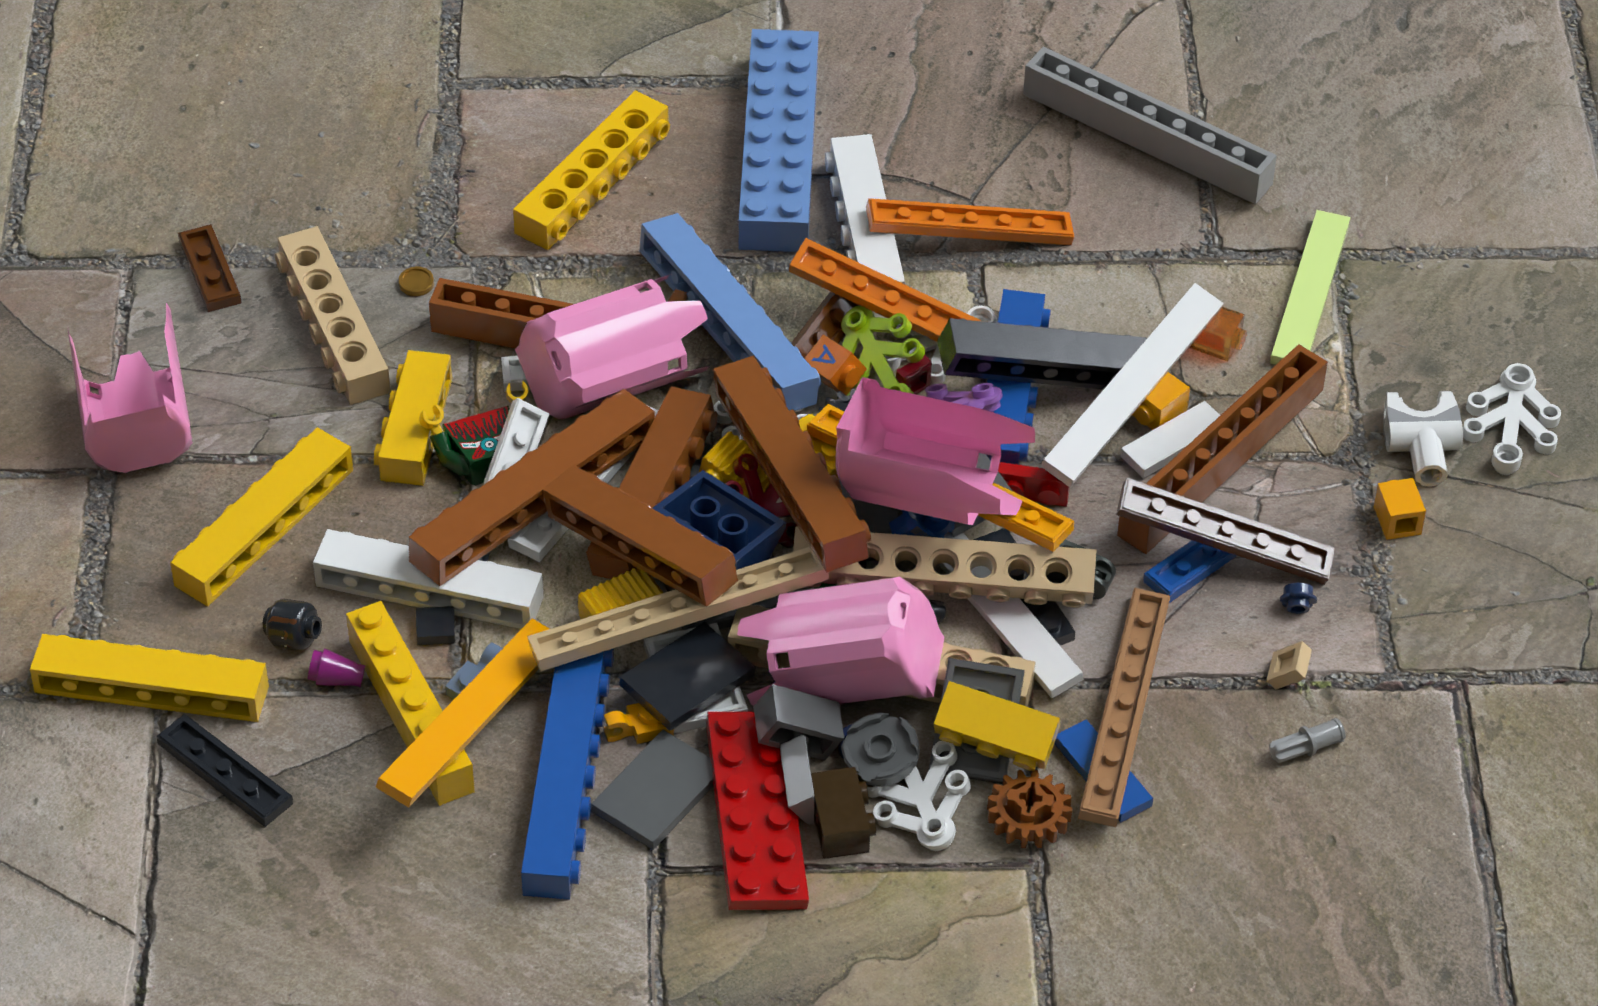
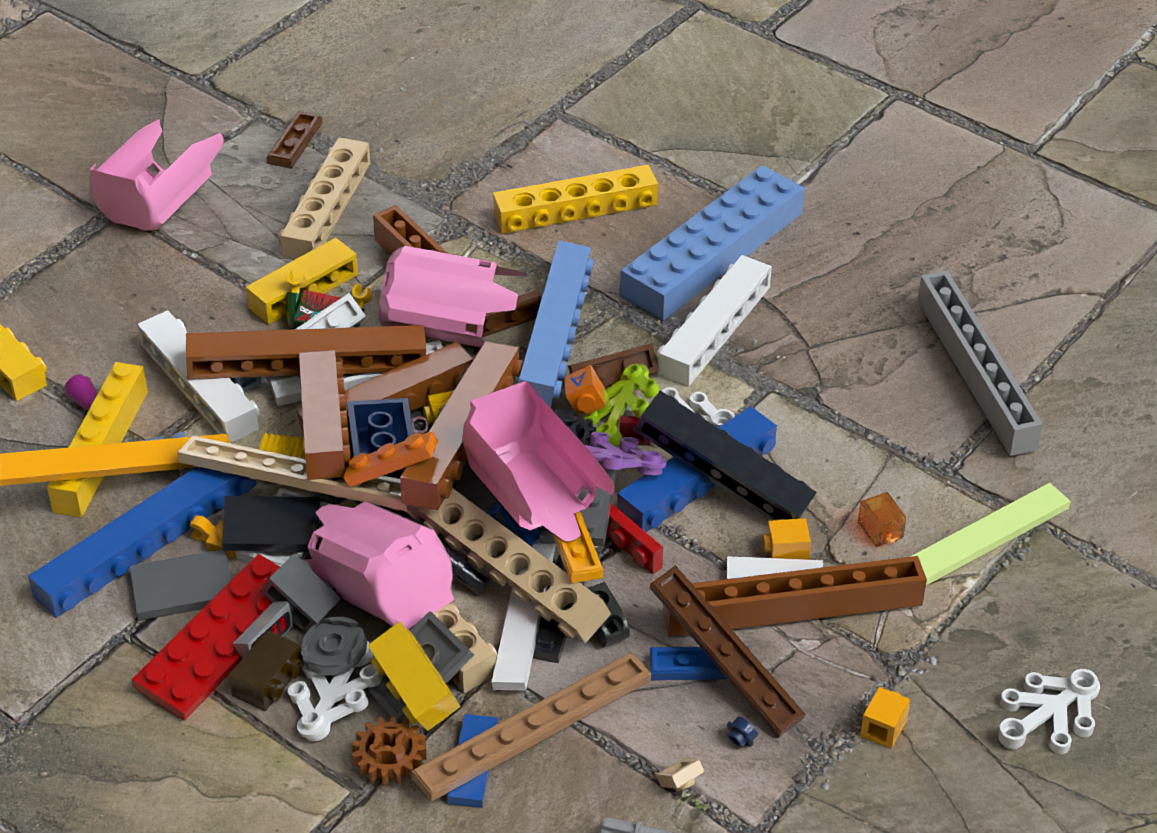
camera: 40 degrees right, 5 degrees down
(261, 516) = (151, 286): yellow brick -> none
(292, 624) = (92, 354): black head -> none
(416, 281) = (405, 205): pearl gold piece -> none
(435, 625) = (173, 406): black tile -> none
(785, 534) = (390, 458): none -> orange plate
(872, 289) = (657, 356): orange plate -> none
(969, 221) = (782, 355): orange tile -> none
(1131, 385) = (765, 513): white tile -> none
(1424, 434) = (962, 678): white connector -> none

